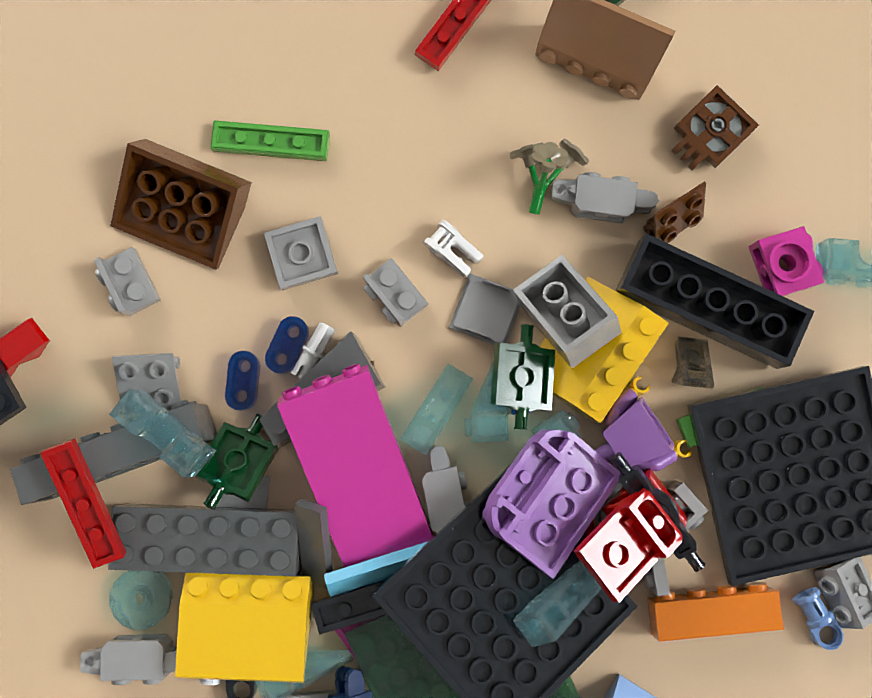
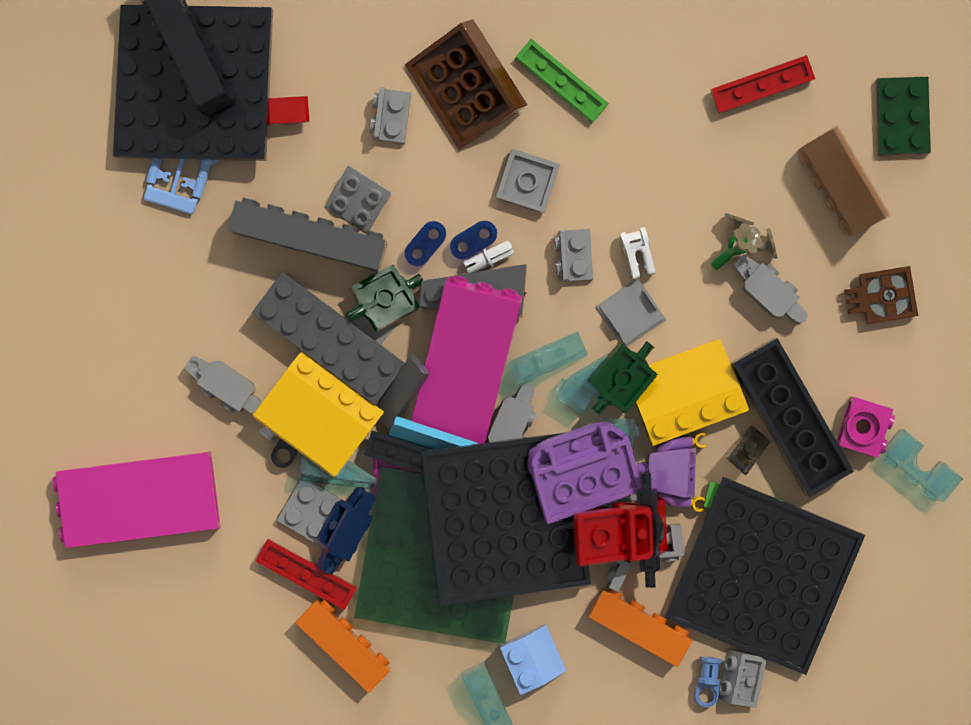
camera: 35 degrees right, 5 degrees up
(83, 503) = (271, 259): red plate -> none
(150, 420) = (358, 249): clear light blue arch -> none
(156, 595) = (266, 352): clear light blue plate -> none
(557, 606) = (538, 542): clear light blue slope -> none
(567, 311) = (684, 353): light grey brick -> none
(678, 215) = (811, 341): reddish brown hinge -> none

